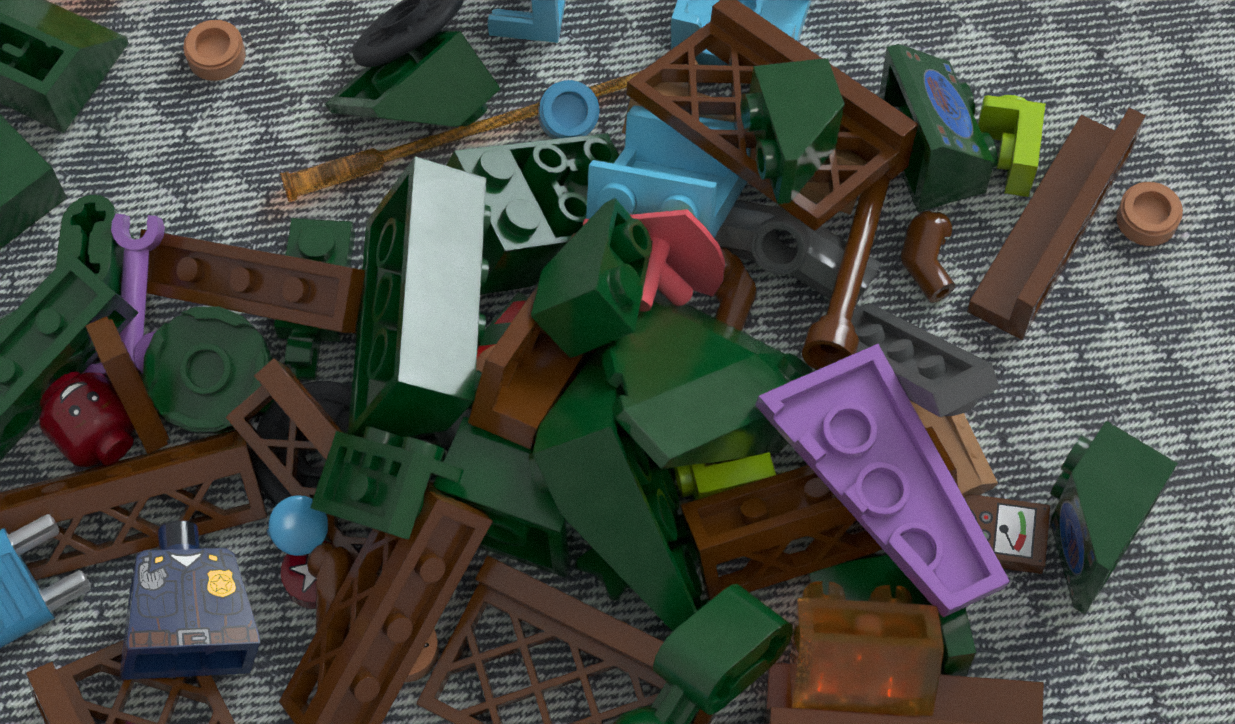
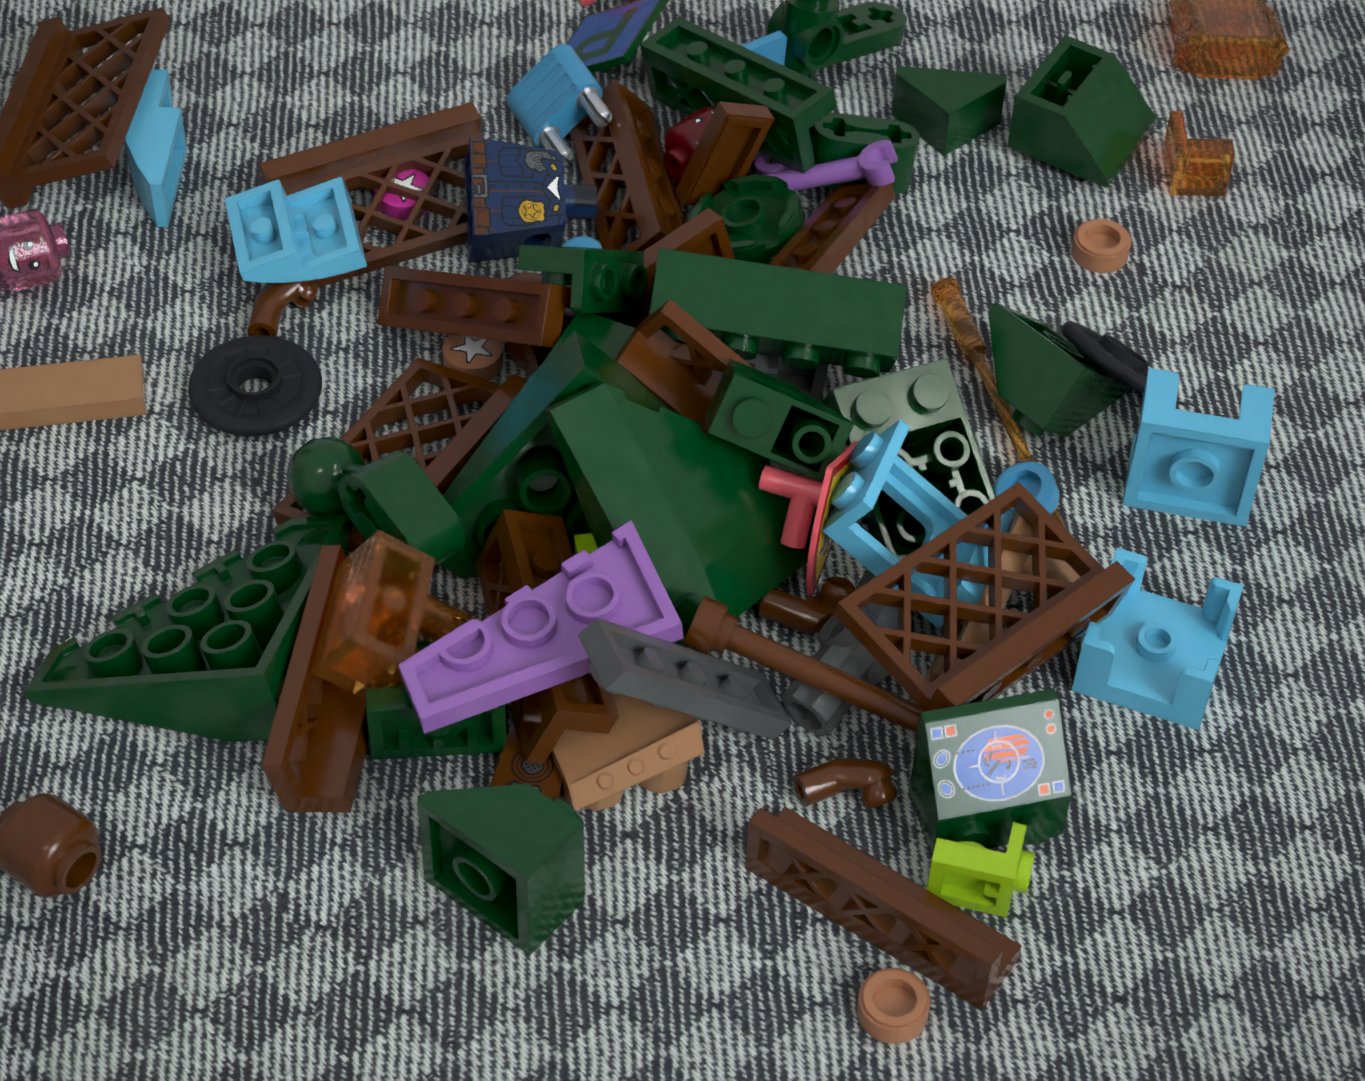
camera: 90 degrees right, 15 degrees down
(794, 120) = (943, 584): dark green slope -> none

